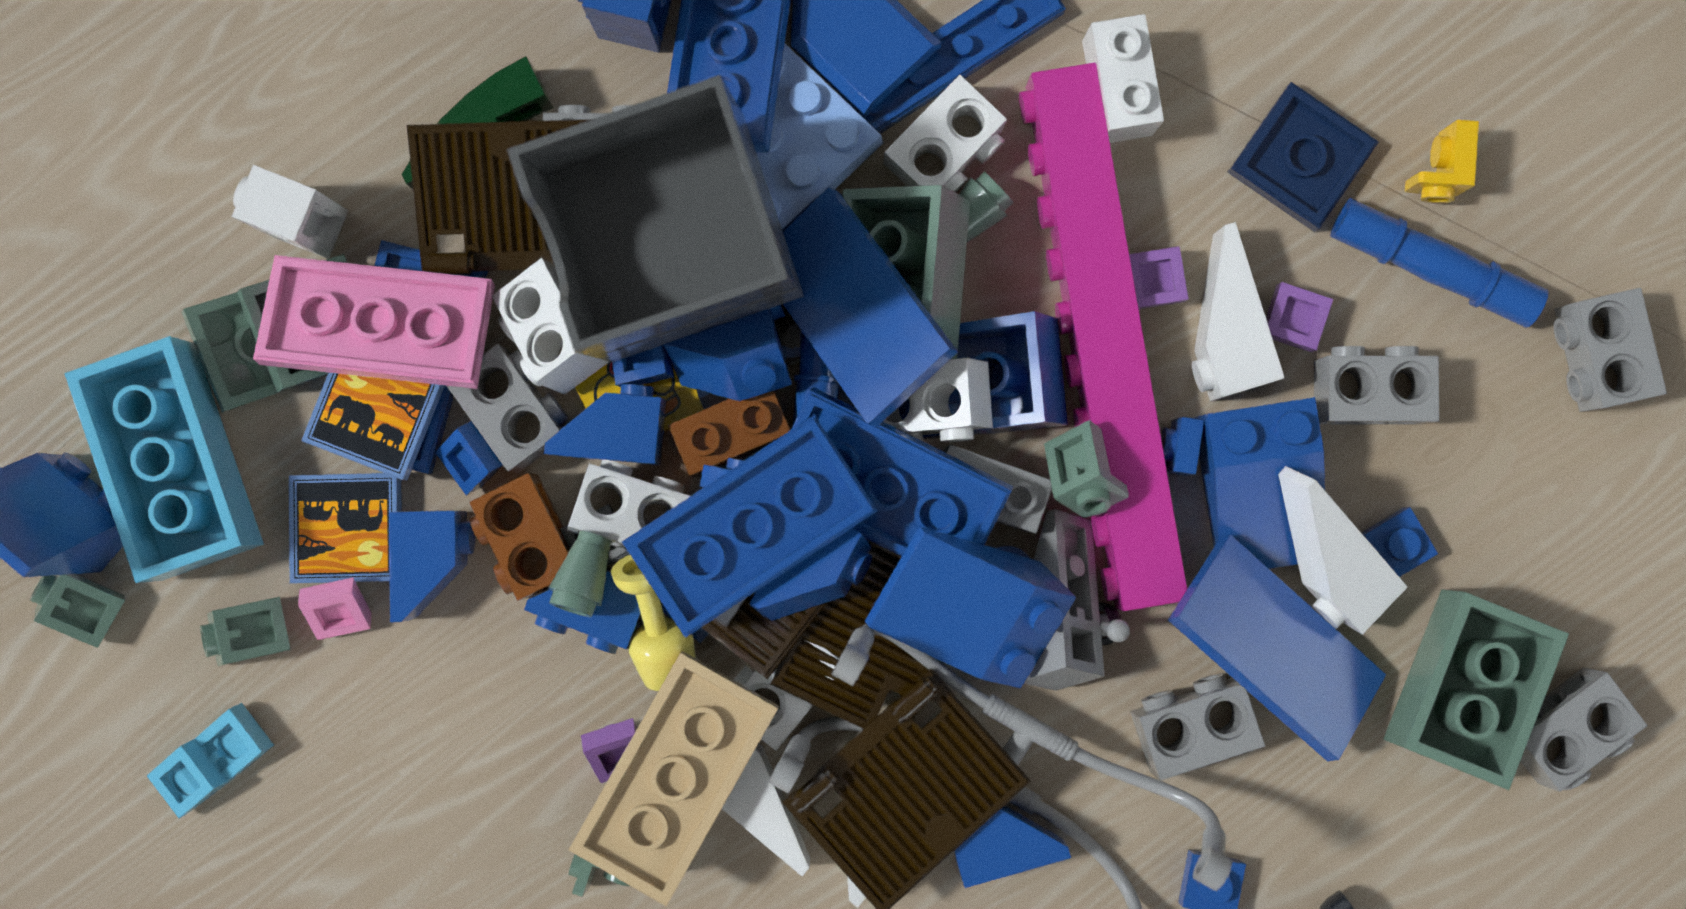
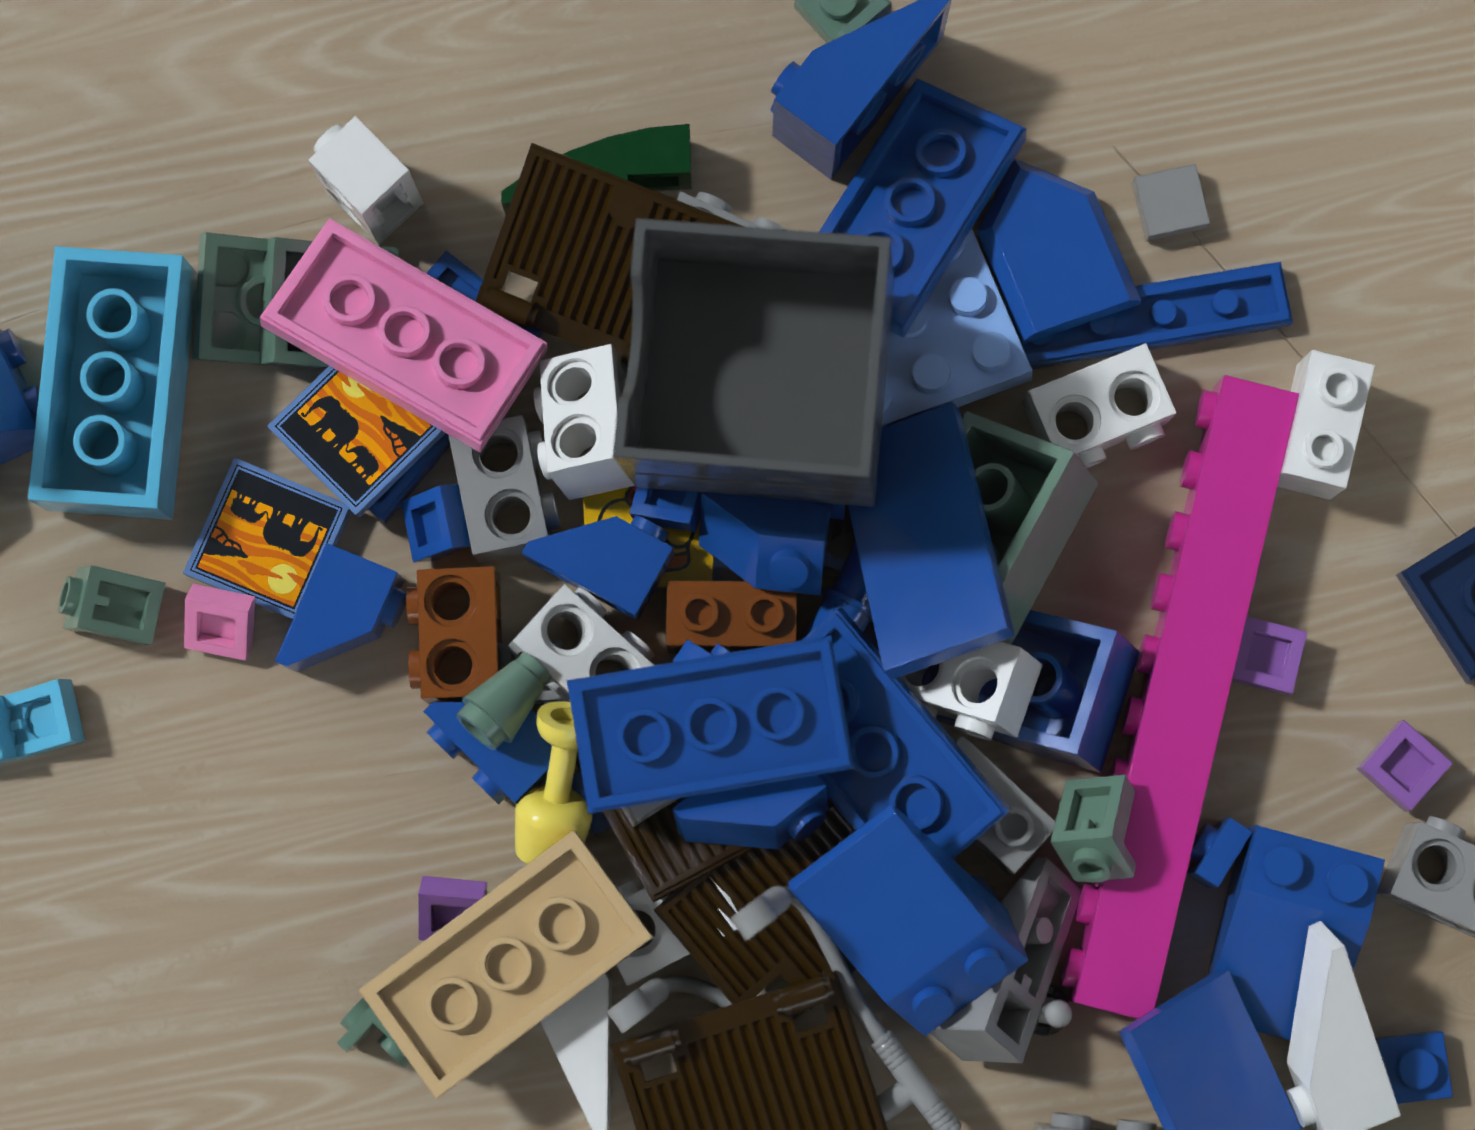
camera: 25 degrees right, 5 degrees down
(987, 204) = (1115, 494): sand green cone -> none
(1232, 333) = (1325, 756): white slope -> none

